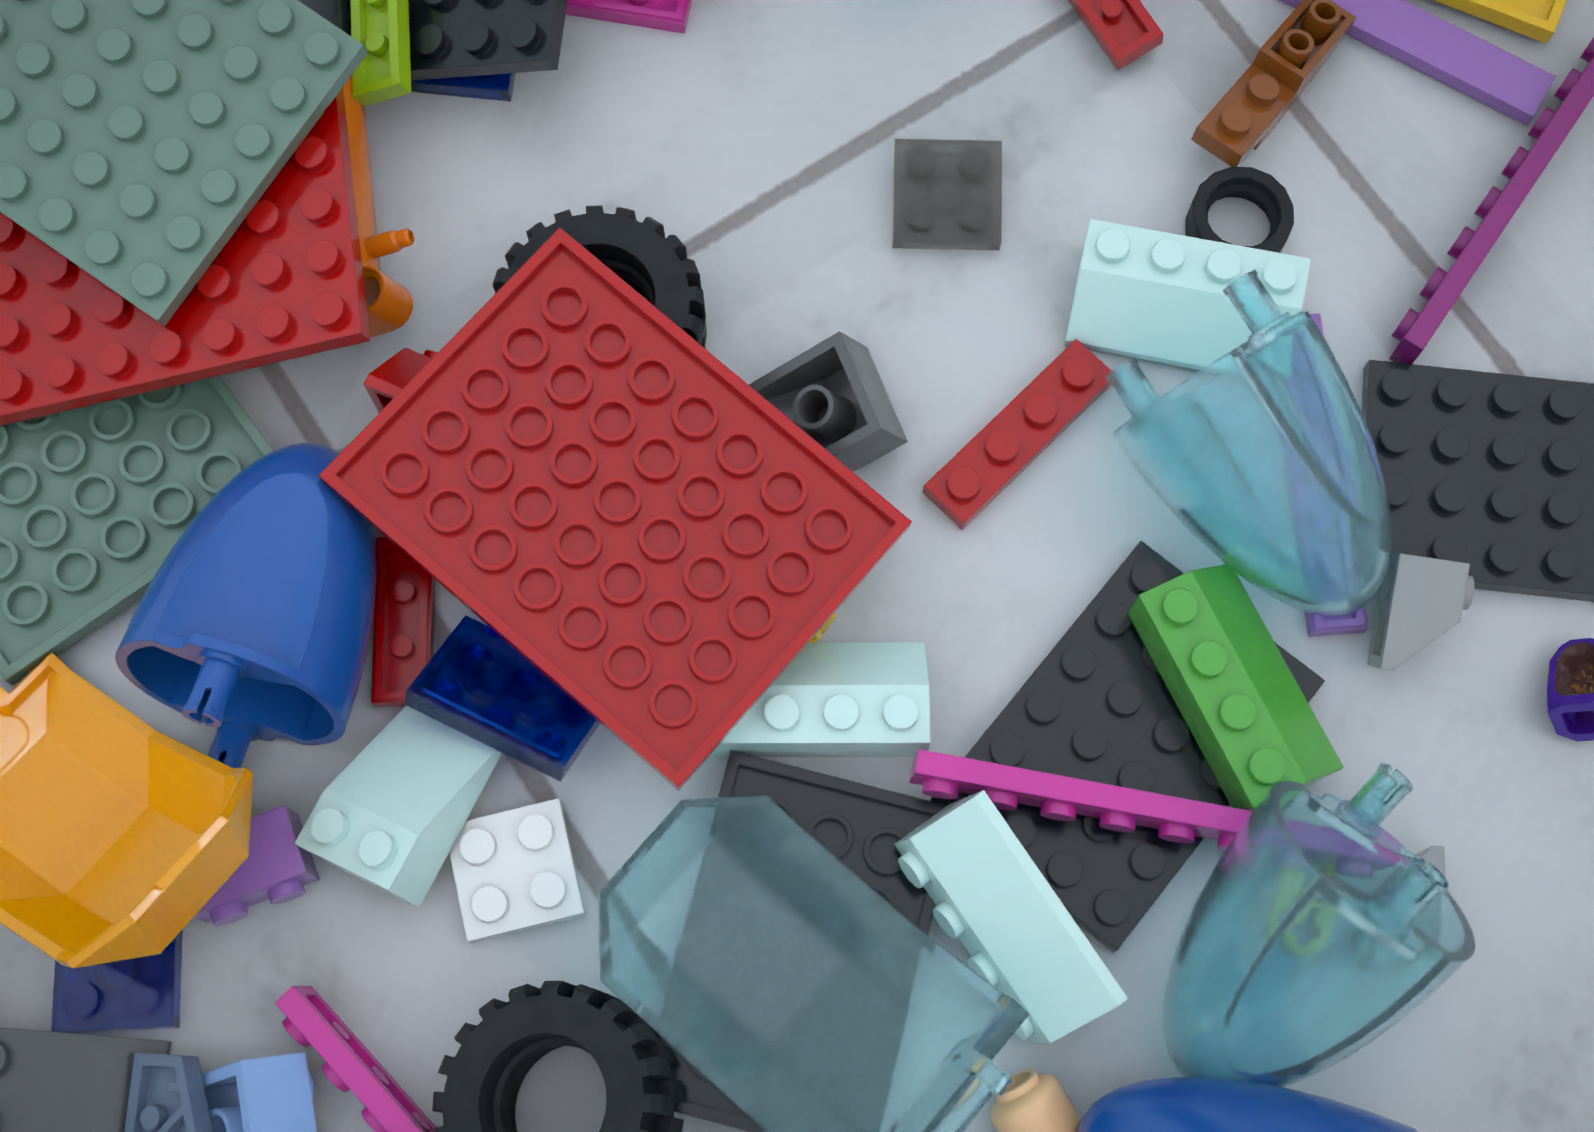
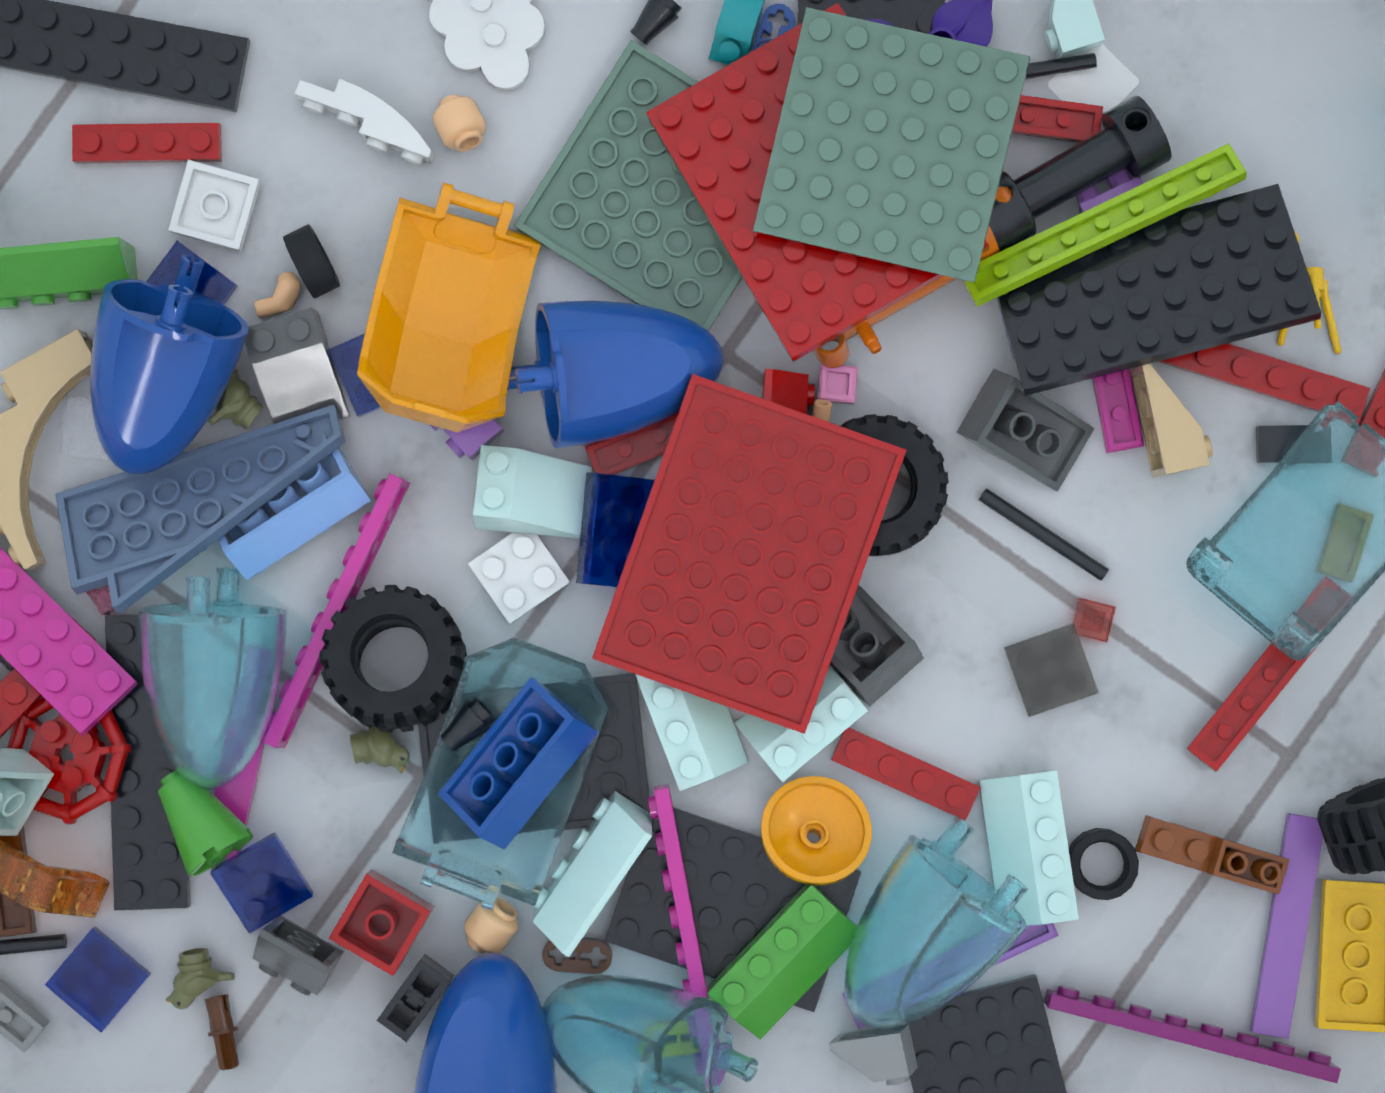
camera: 75 degrees right, 15 degrees up
(435, 323) = (837, 384): none -> bright pink tile
(605, 110) = (1025, 430): none -> dark grey slope
(706, 1021) = (470, 722): none -> black cone
(758, 142) = (1043, 534): none -> black bar
(795, 962) = (517, 763): none -> blue slope
(899, 118) = (1093, 619): none -> clear red tile
(922, 571) = (788, 749): none -> light aqua slope
(1052, 547) = (821, 808): none -> light orange dish
(1137, 1008) = (578, 964): none -> reddish brown beam

